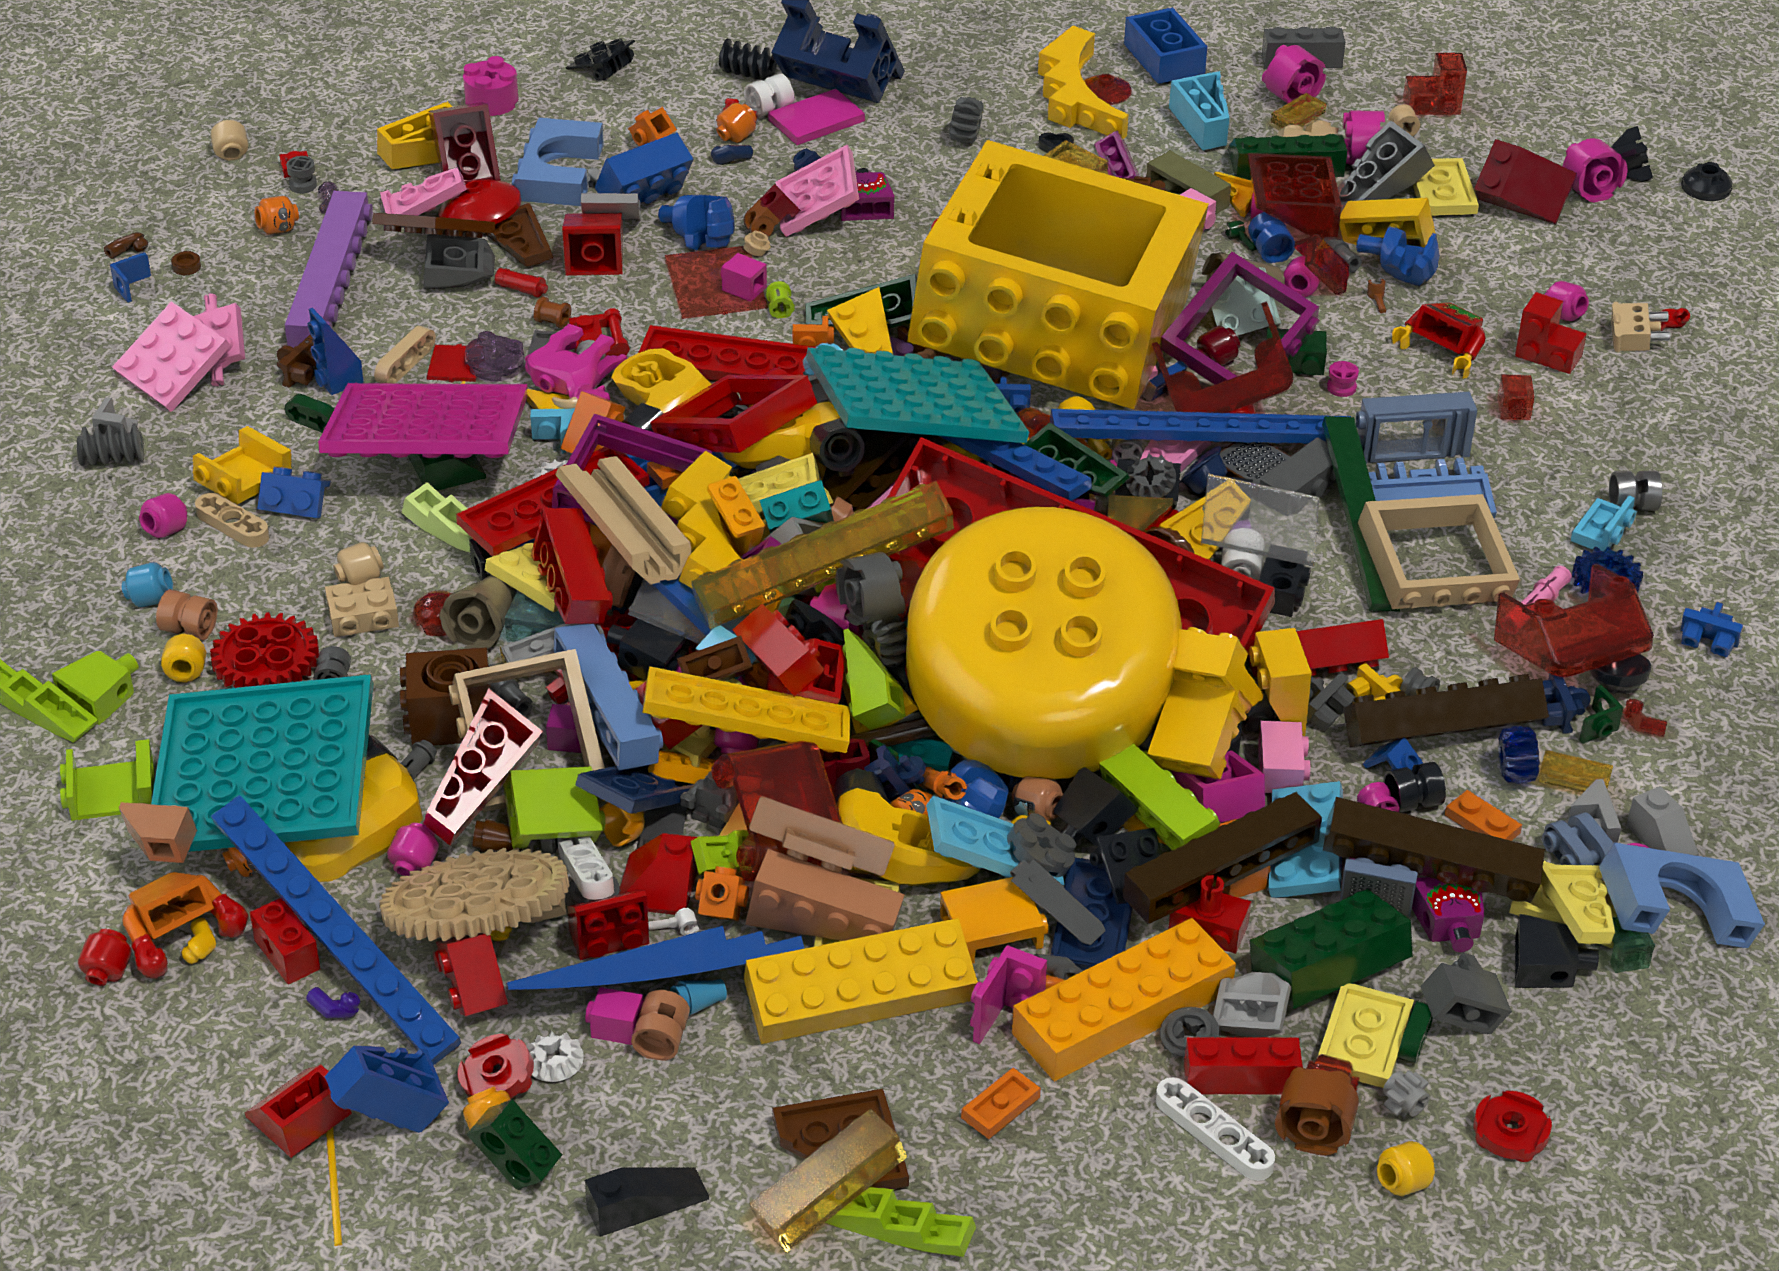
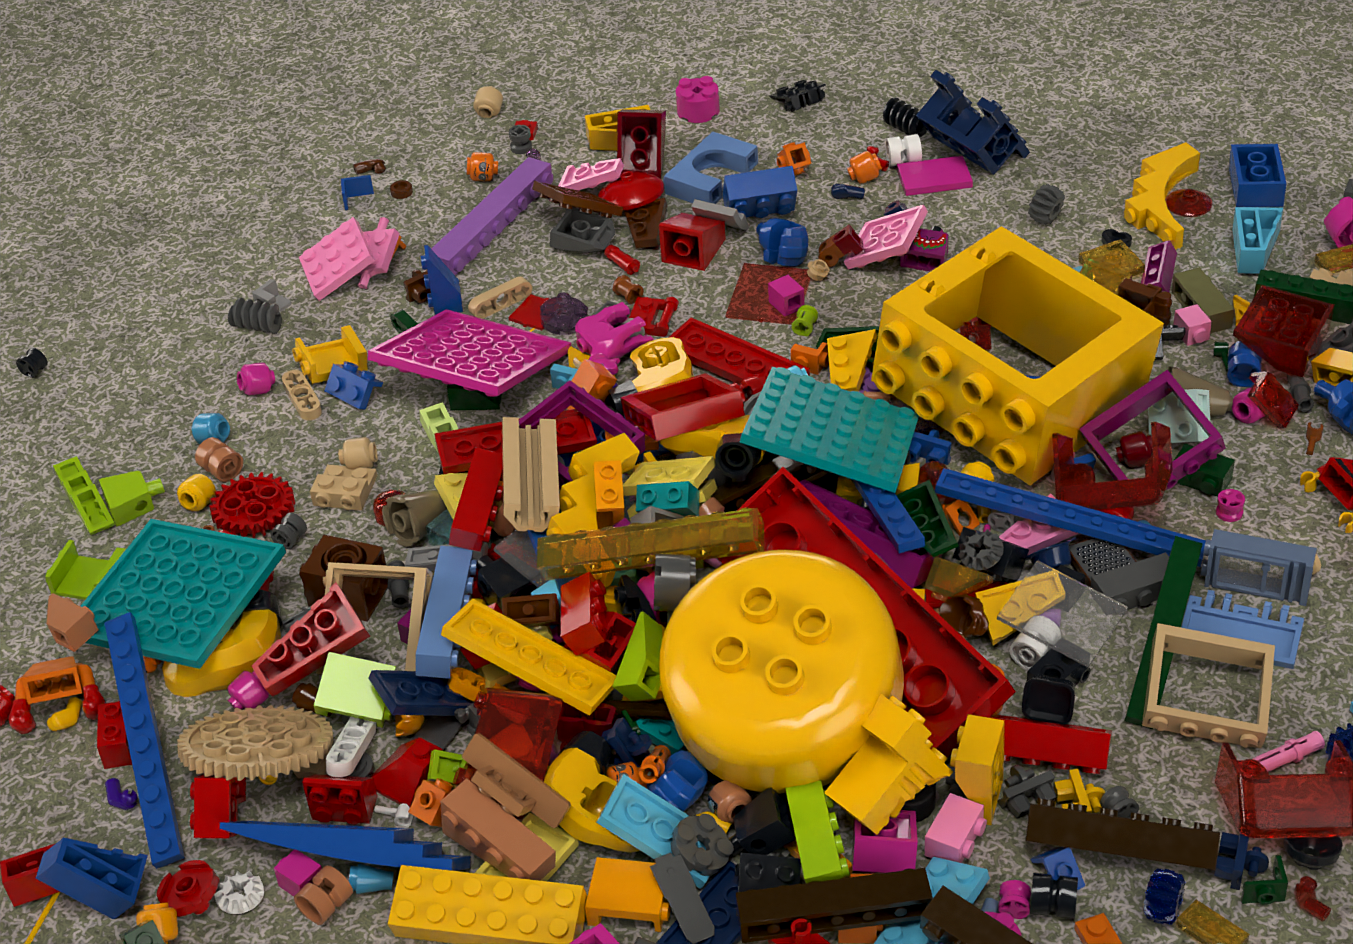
camera: 30 degrees right, 0 degrees up
(1298, 606) = (1048, 699): none -> black piece

